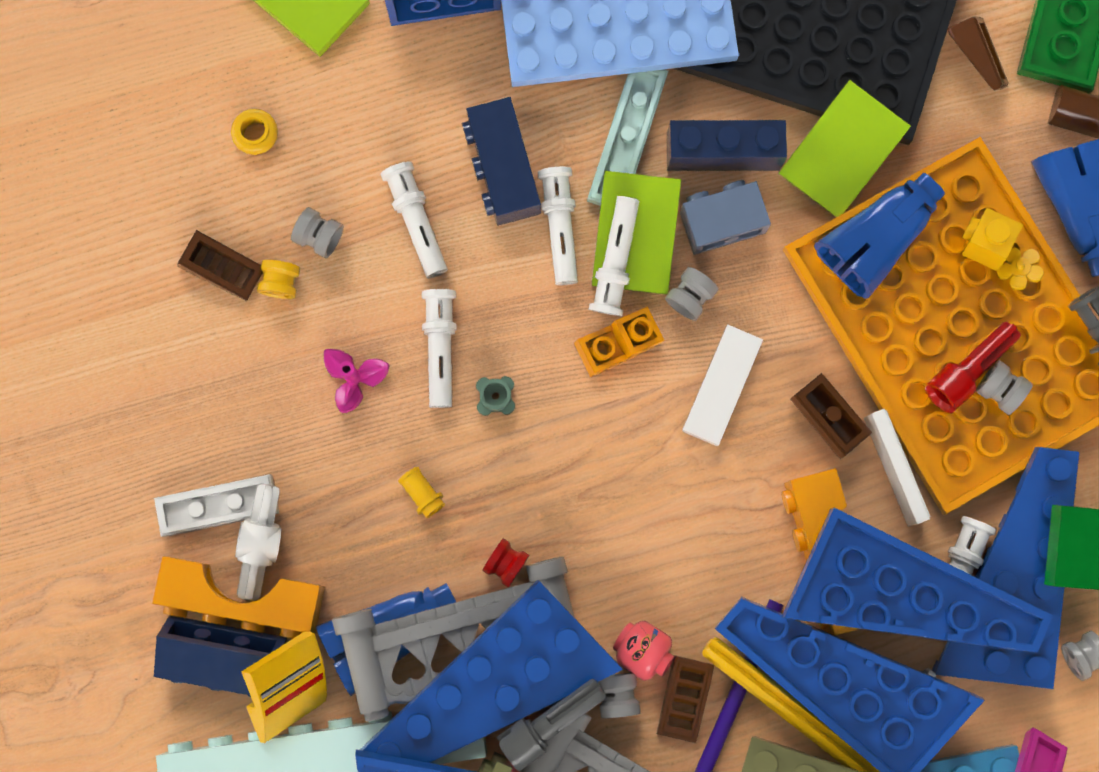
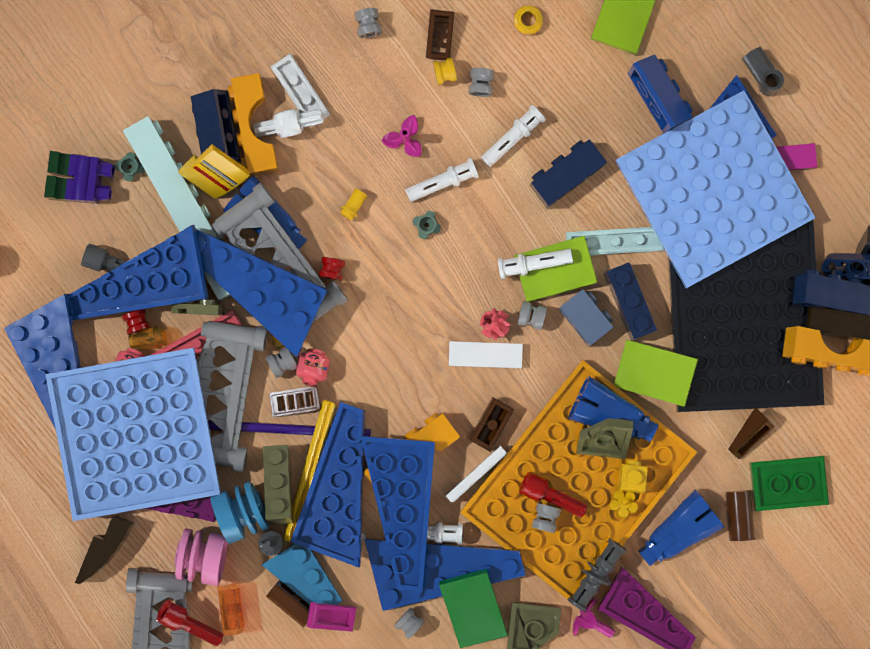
camera: 65 degrees right, 5 degrees up
(161, 364) = (368, 25): none -> light grey wheel
(528, 738) = (238, 319): dark grey piece -> none
(560, 224) = (545, 221): white pin -> none
(619, 341) = (487, 284): light orange slope -> none
(684, 352) = (495, 324): none -> coral gear
(920, 252) = (606, 439): none -> olive plate

